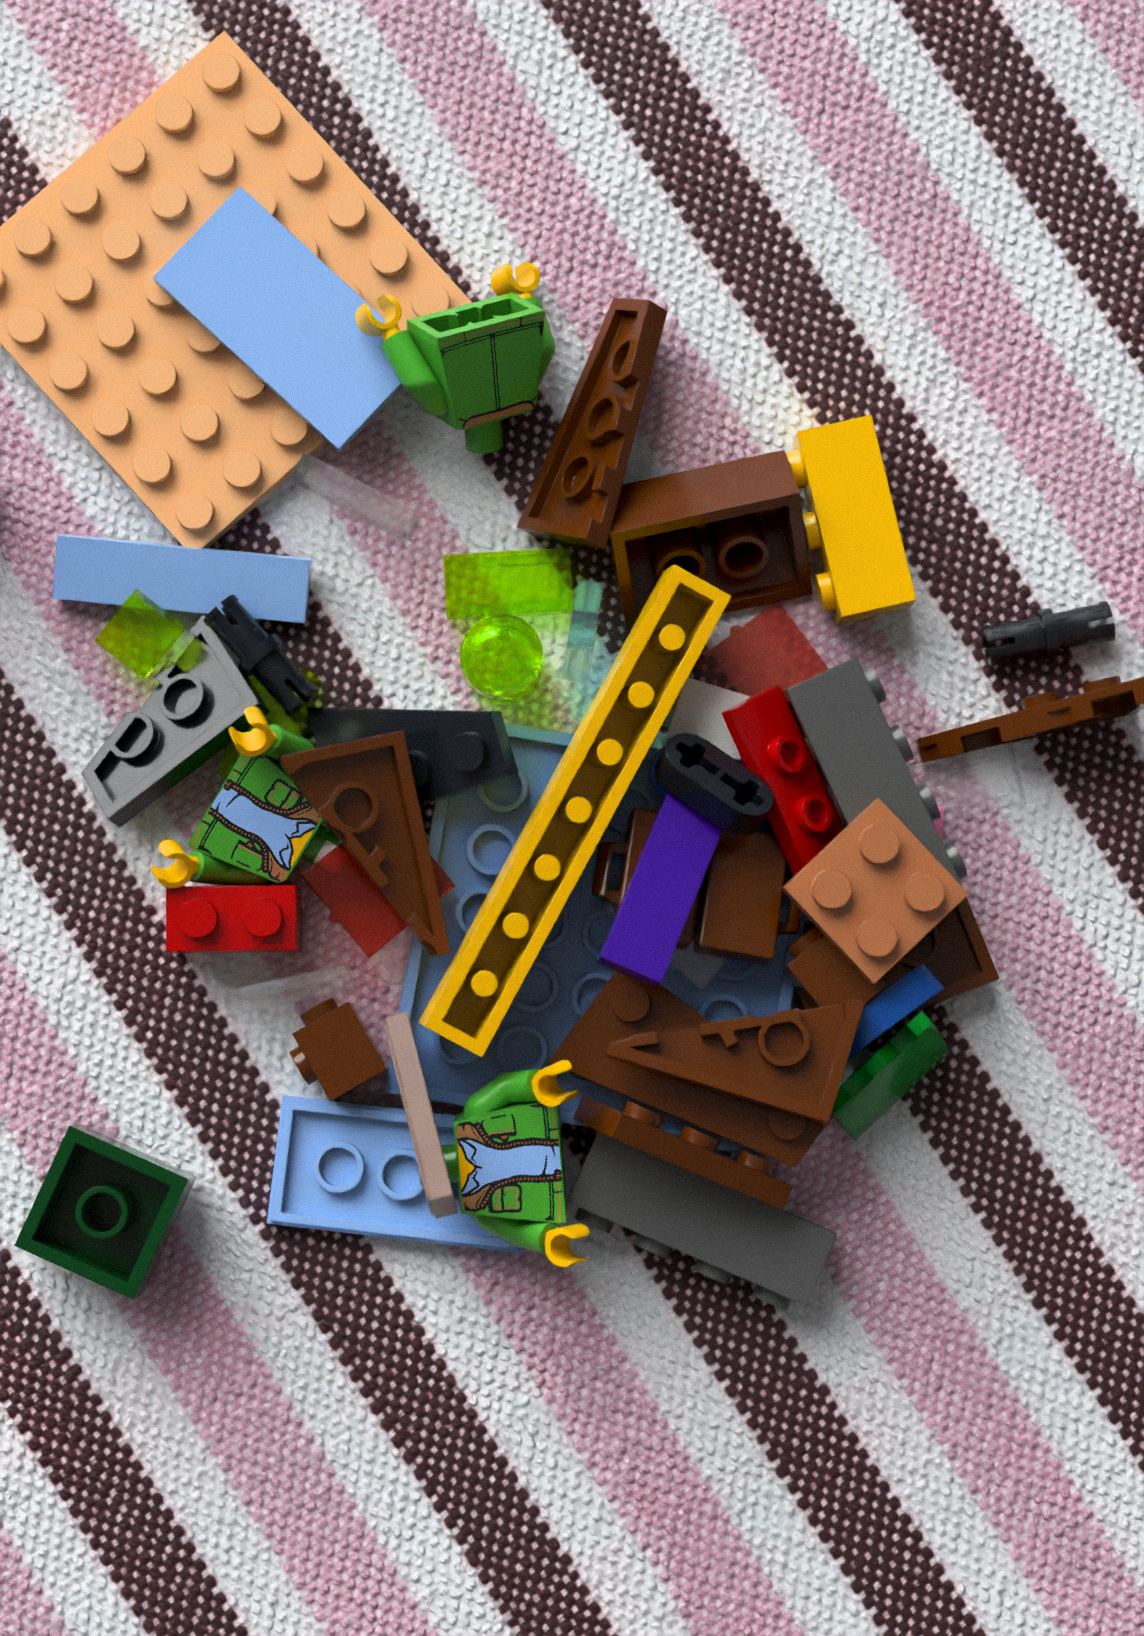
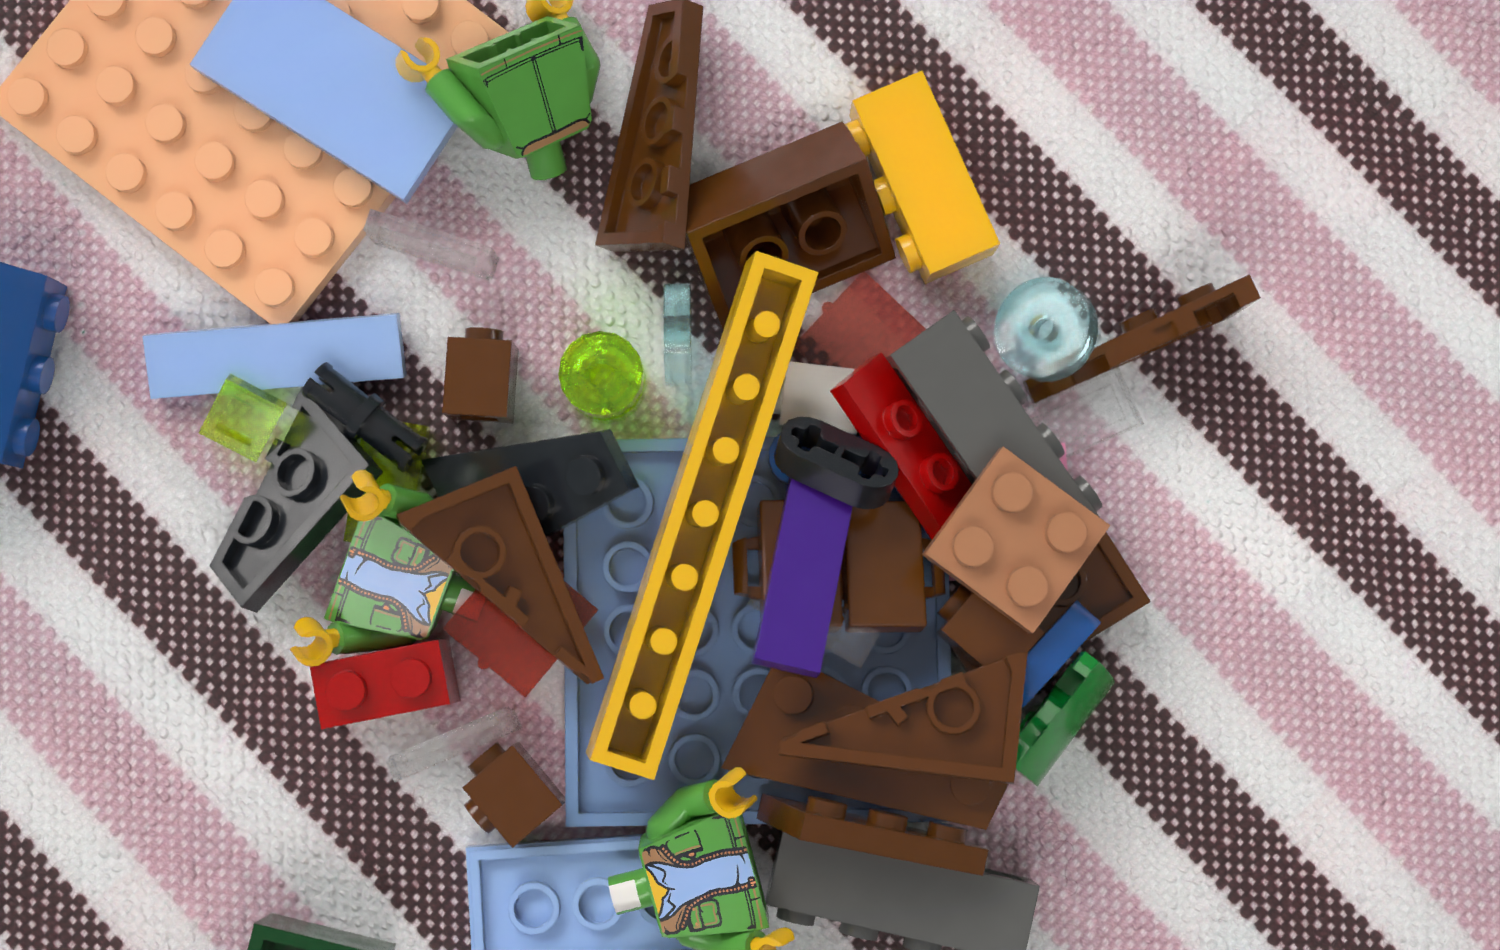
camera: 10 degrees left, 0 degrees up
(381, 636) = (480, 377): none -> reddish brown brick
(420, 1115) = (603, 849): tile -> none
(508, 583) = (595, 301): clear neon green tile -> none
(967, 707) = (1068, 343): none -> clear light blue piece
(1048, 633) = (1133, 253): black pin -> none

